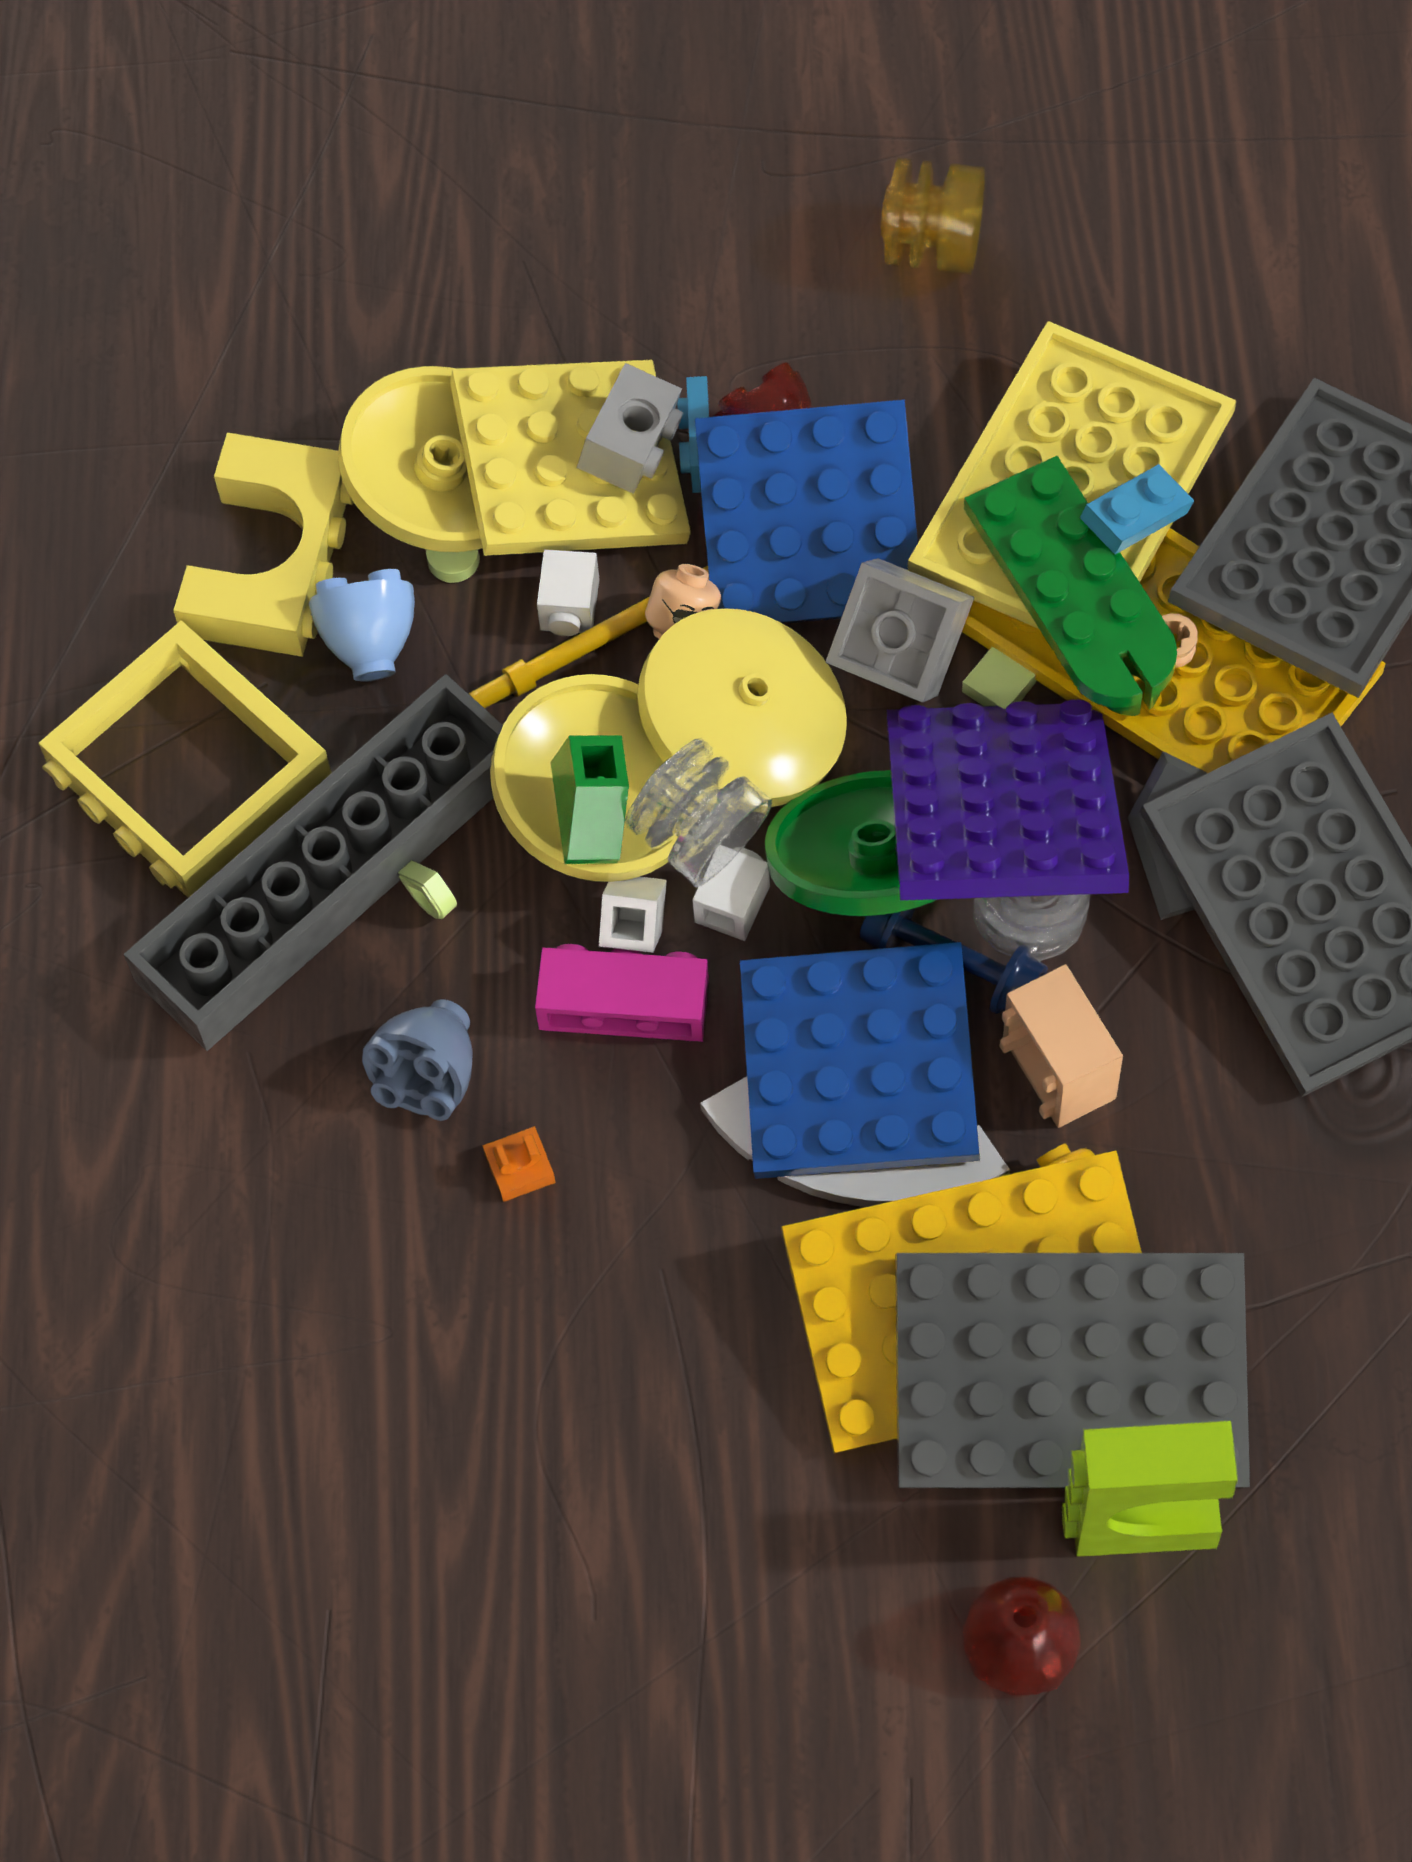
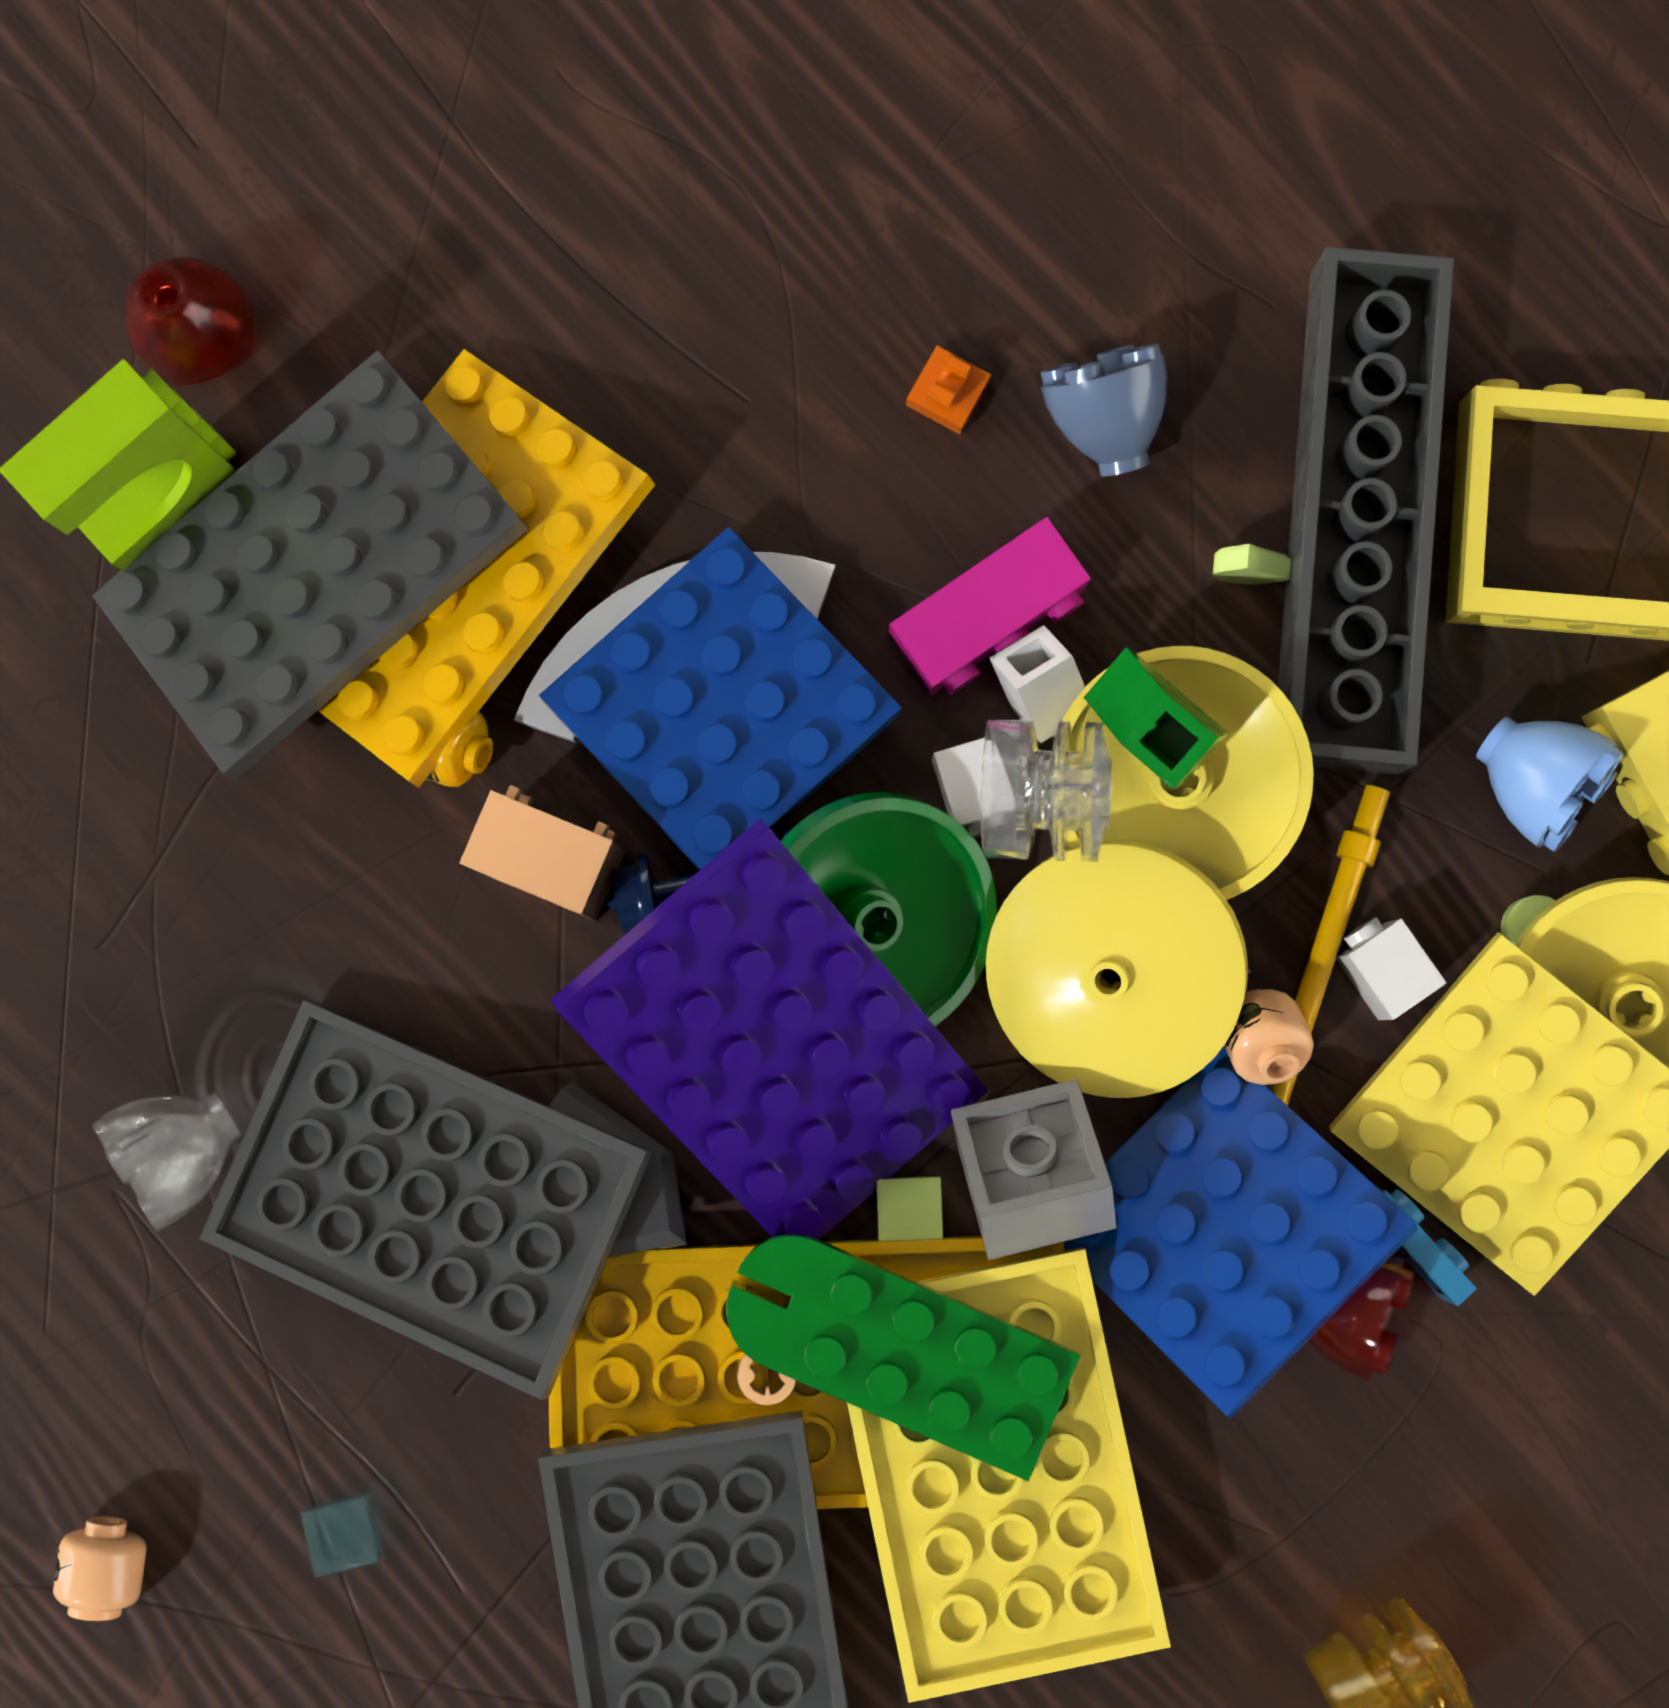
camera: 140 degrees right, 20 degrees up
(634, 403) = (1498, 1211): light grey brick -> none
(1136, 509) = (898, 1478): dark azure plate -> none

